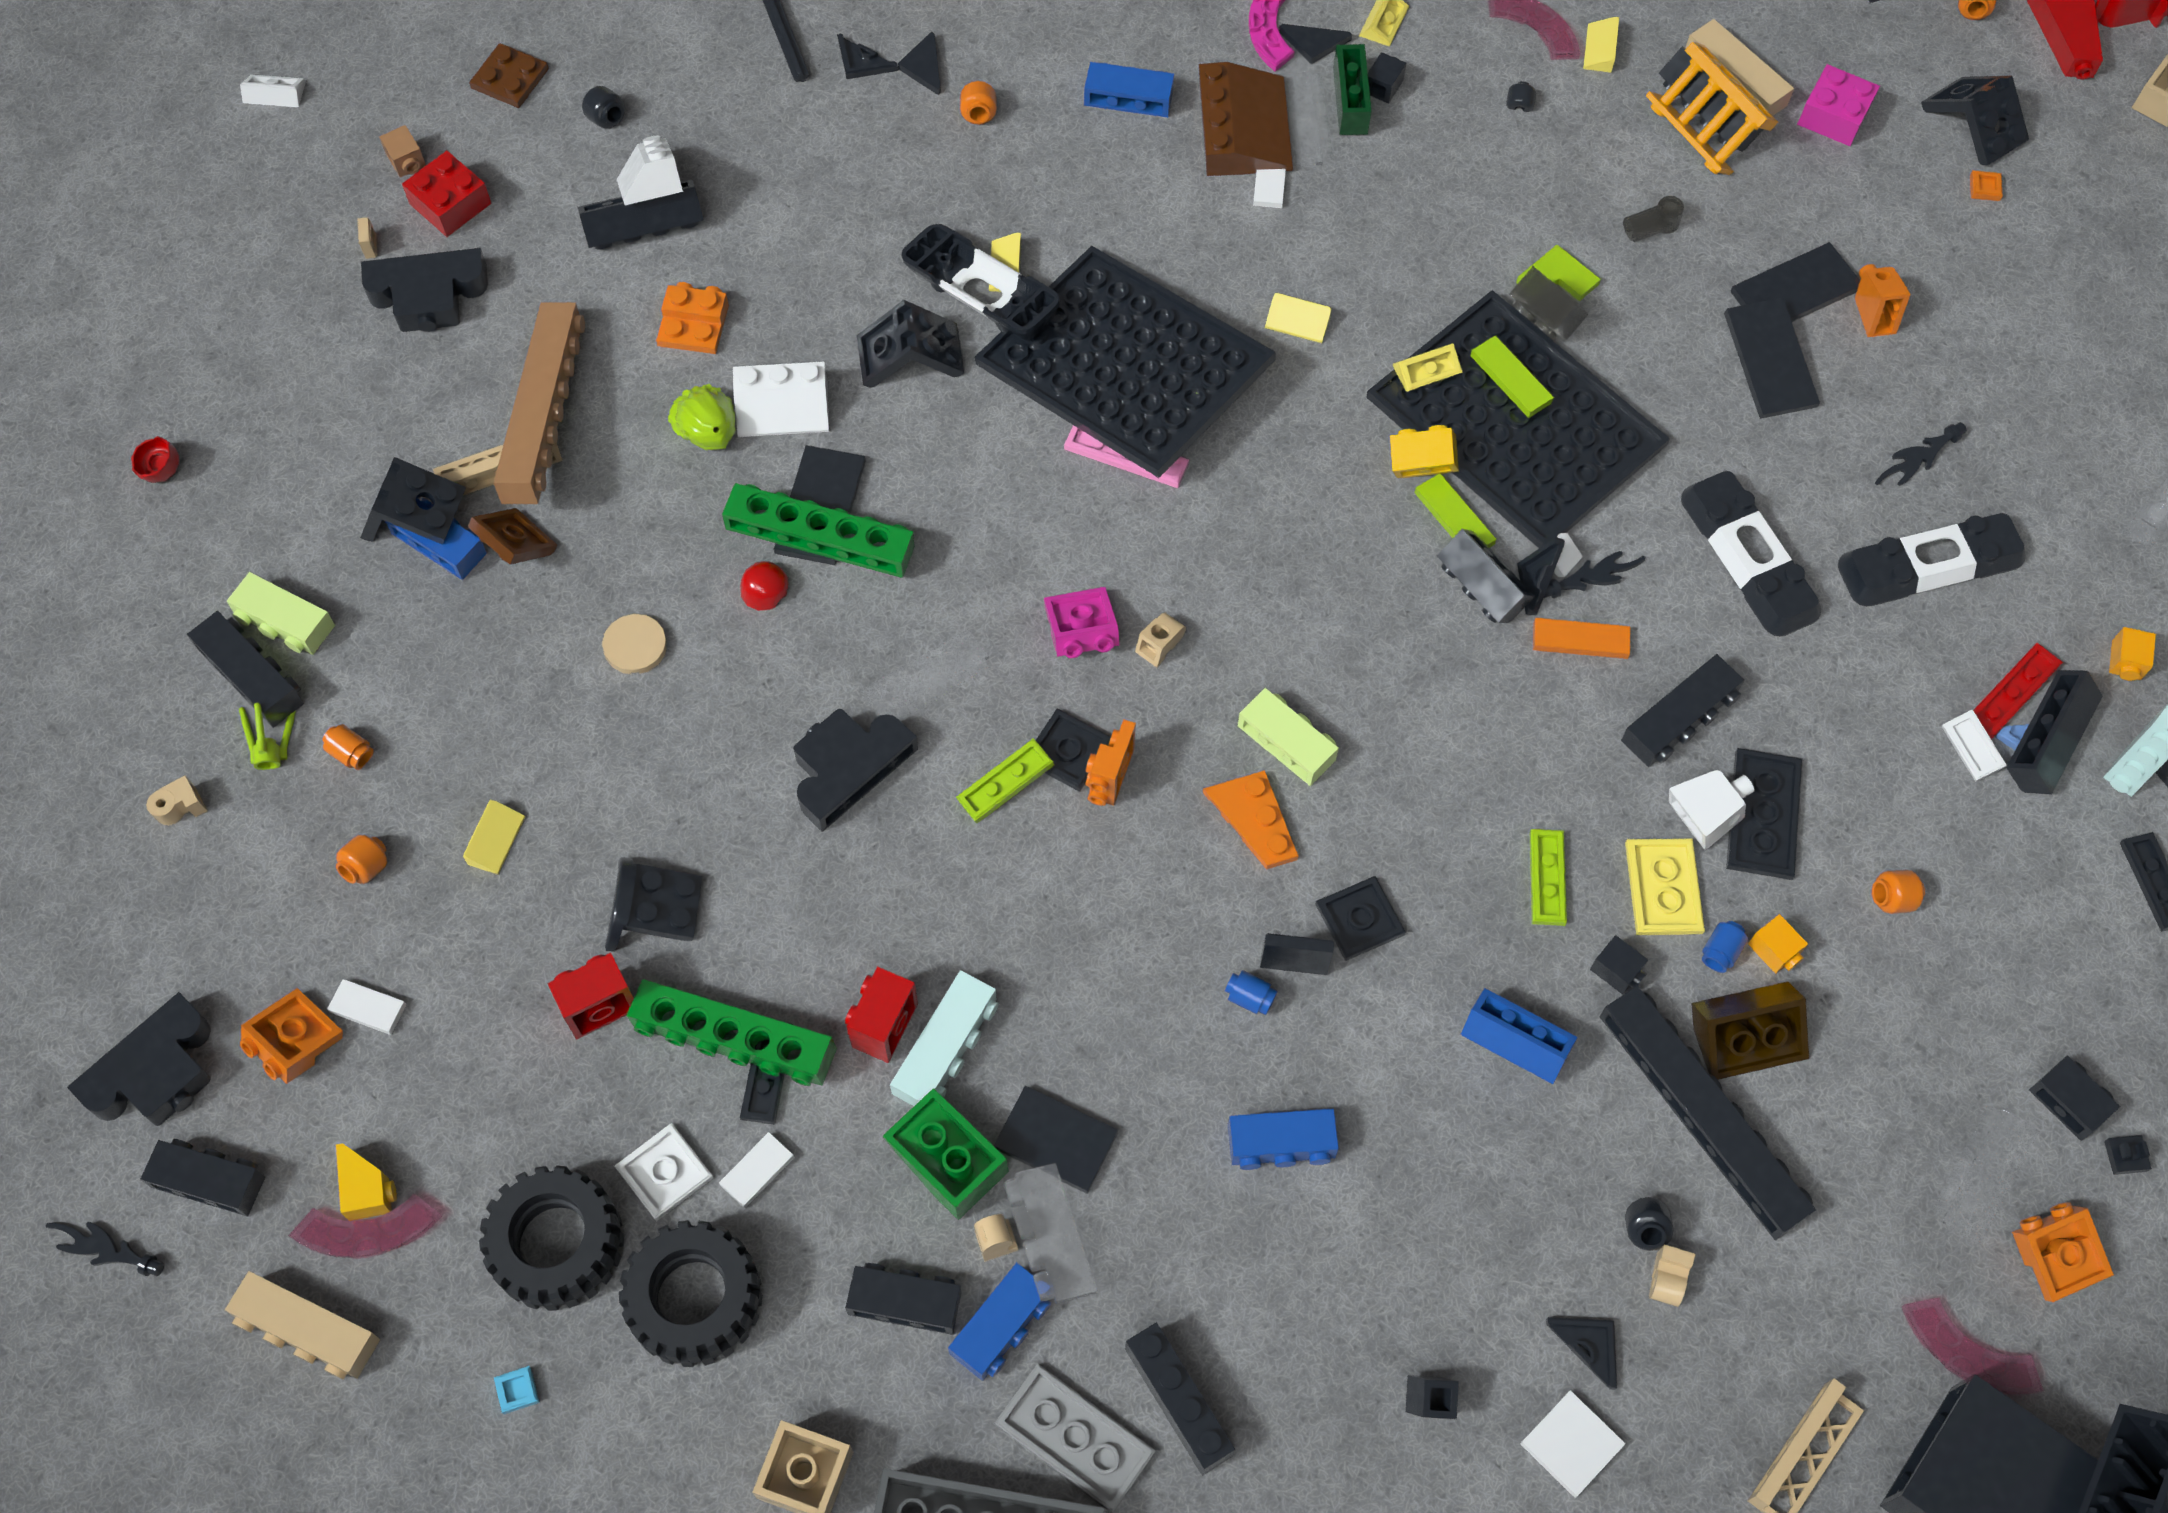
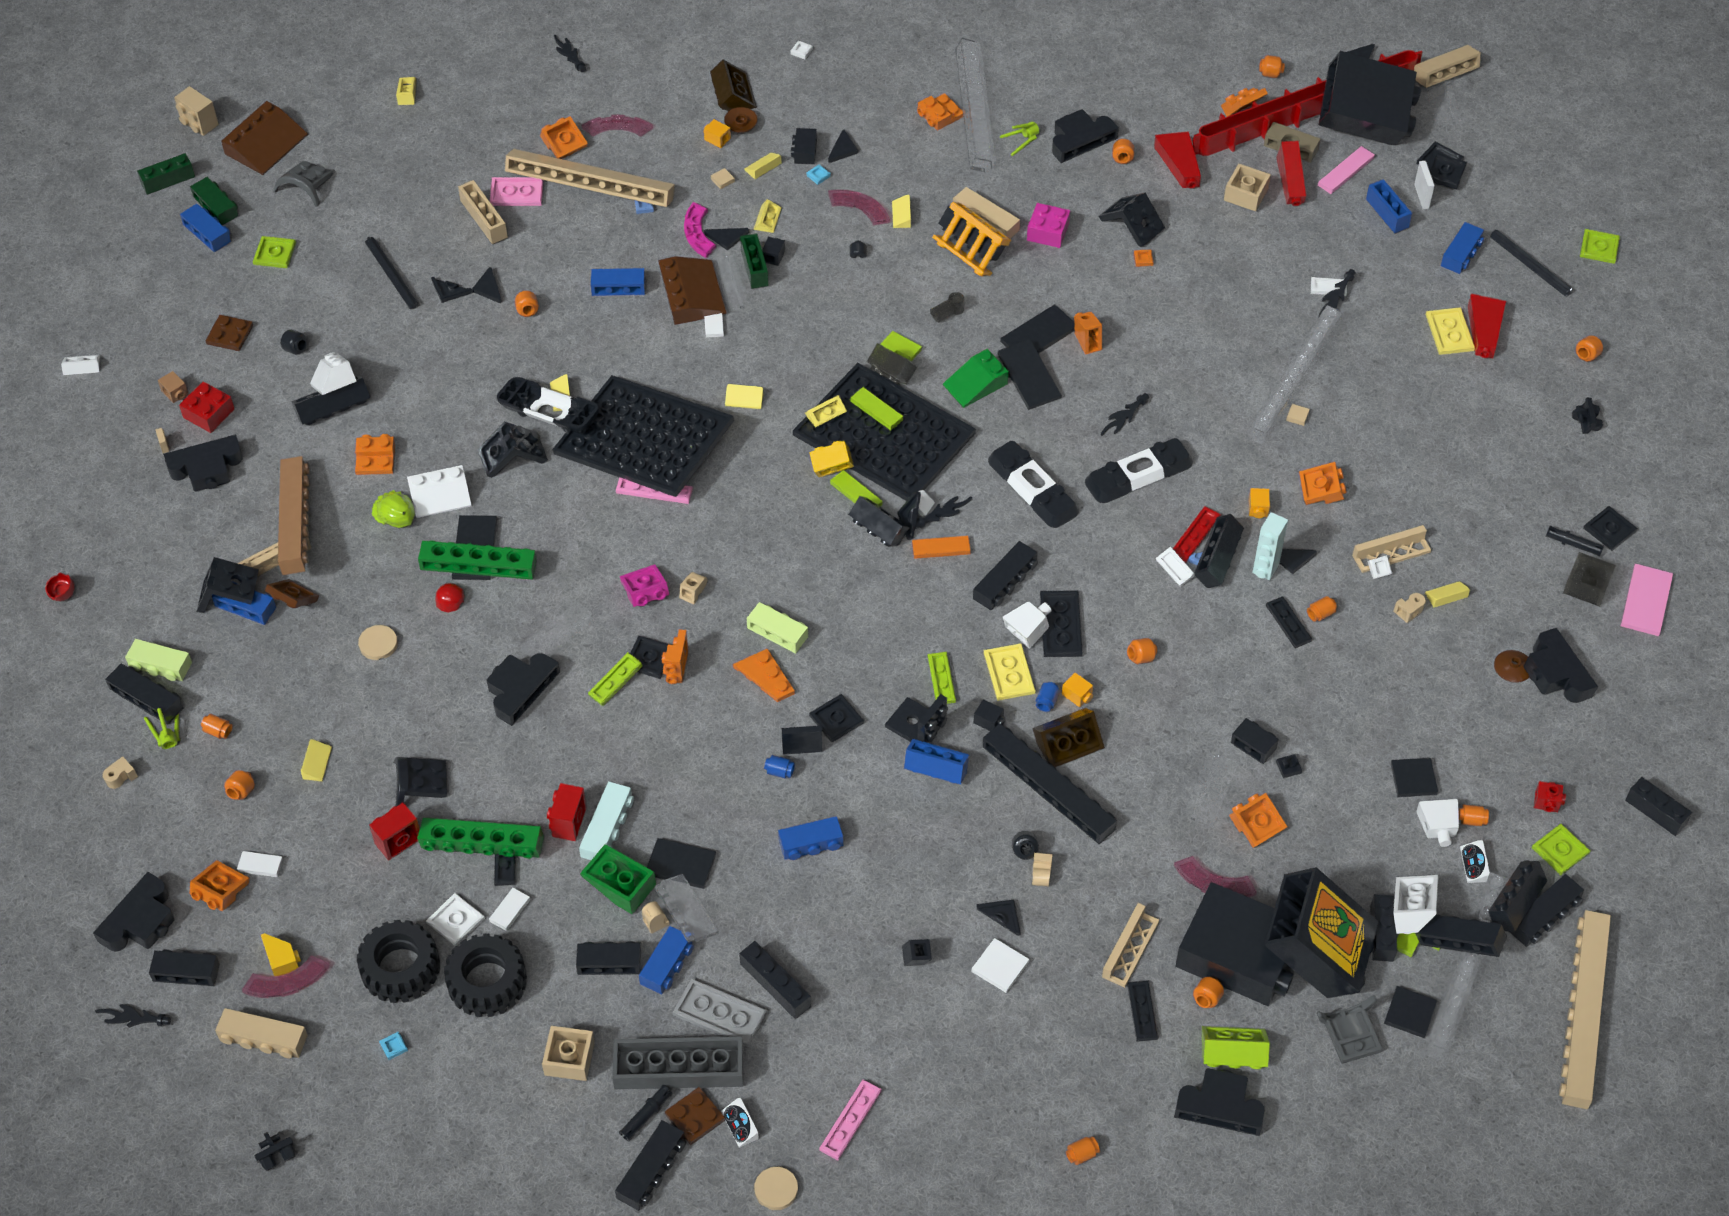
camera: 10 degrees left, 10 degrees down
(1514, 957) = (928, 720): none -> black bracket
(1684, 351) = (977, 378): none -> green slope

